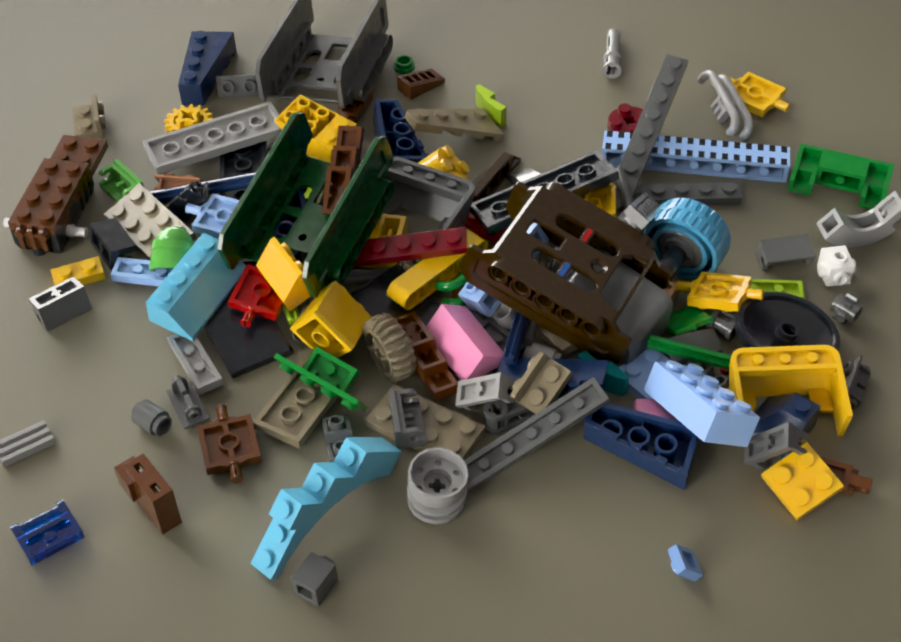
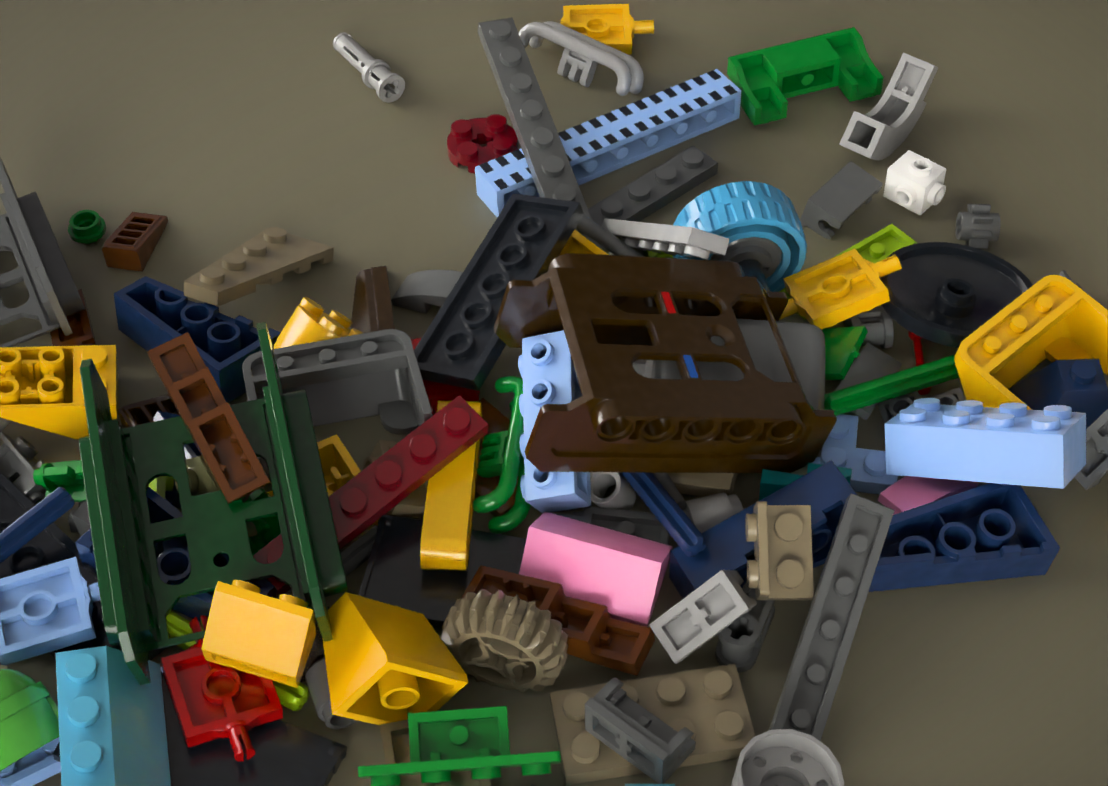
camera: 40 degrees left, 0 degrees up
(486, 100) = (262, 212): lime slope -> none

